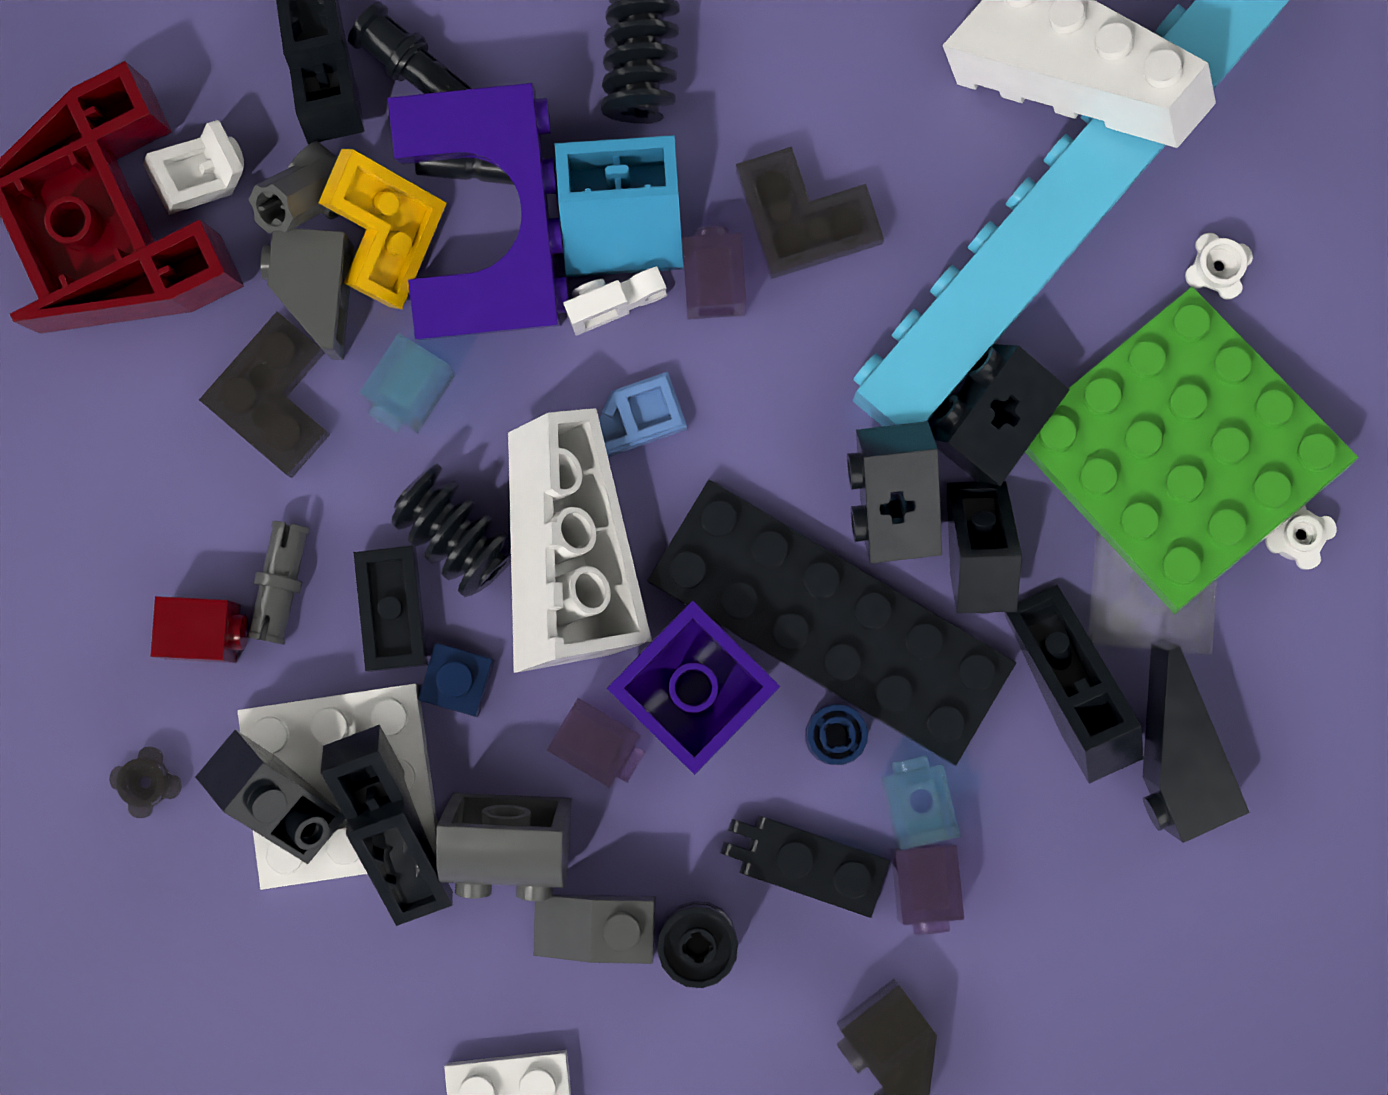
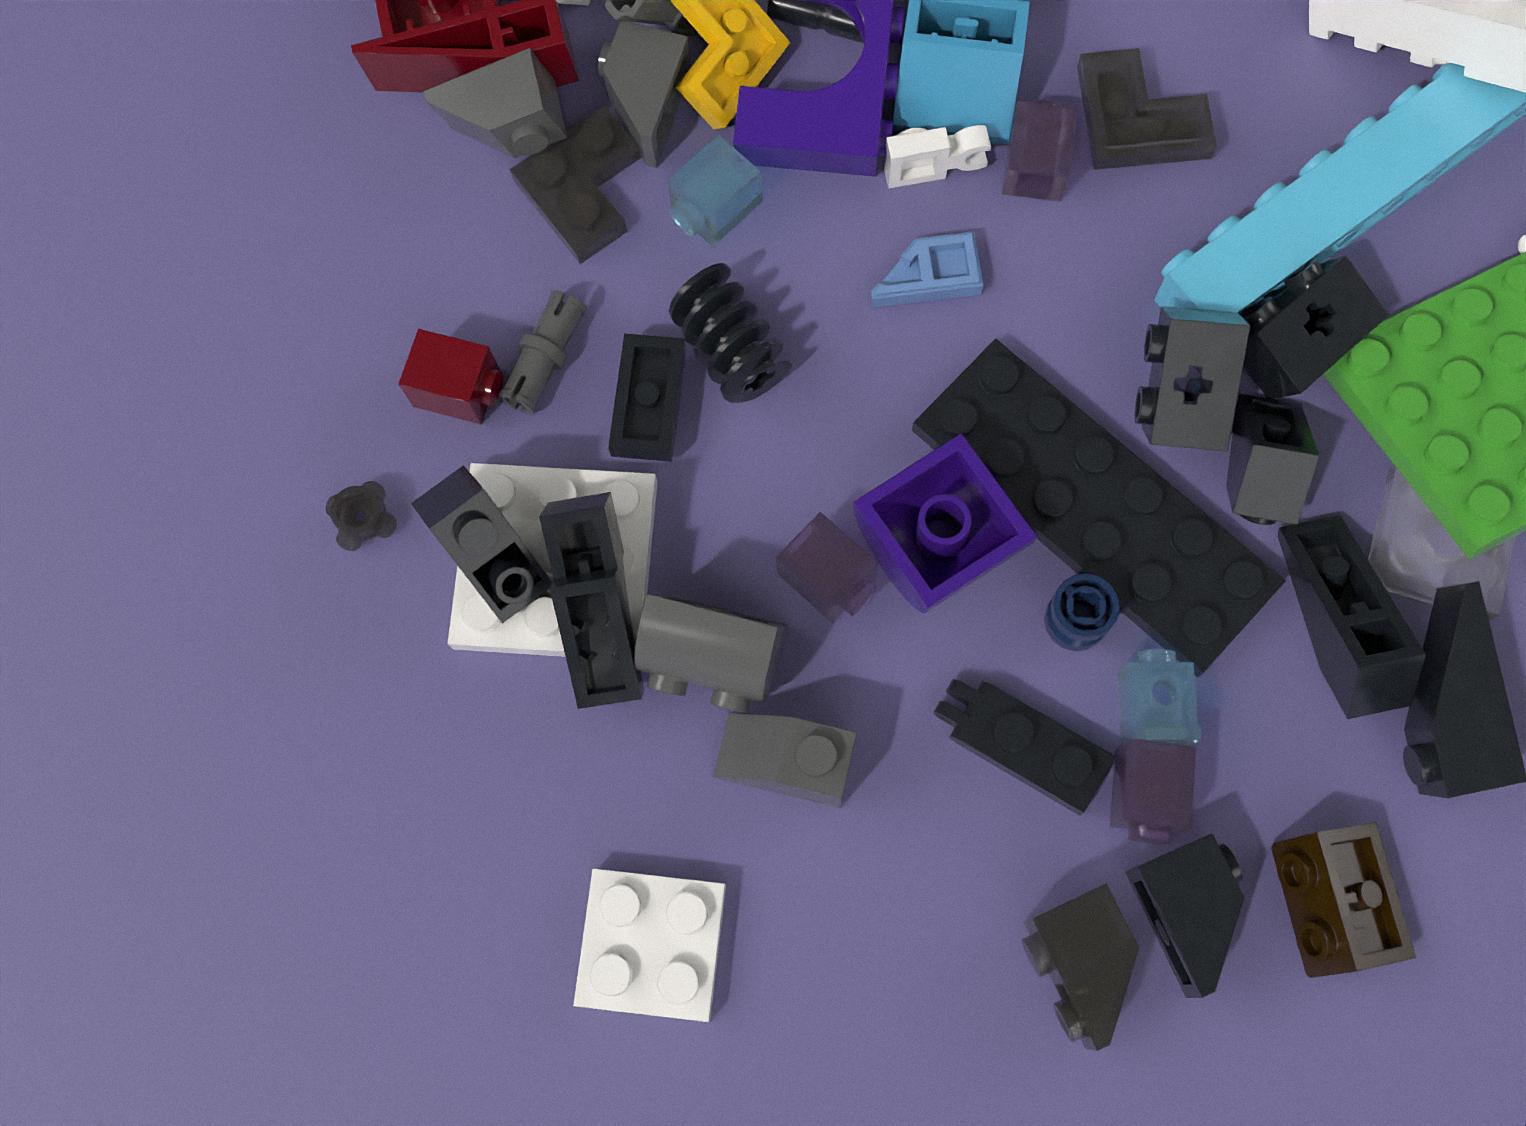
camera: 15 degrees right, 10 degrees down
(180, 340) = (504, 105): none -> dark grey slope
(456, 680) = (697, 482): dark blue plate -> none
(568, 546) = (842, 367): white wedge -> none
(697, 944) = (893, 793): black wheel -> none
(979, 981) = (1192, 909): none -> black slope
(1109, 946) = (1342, 900): none -> dark brown bracket

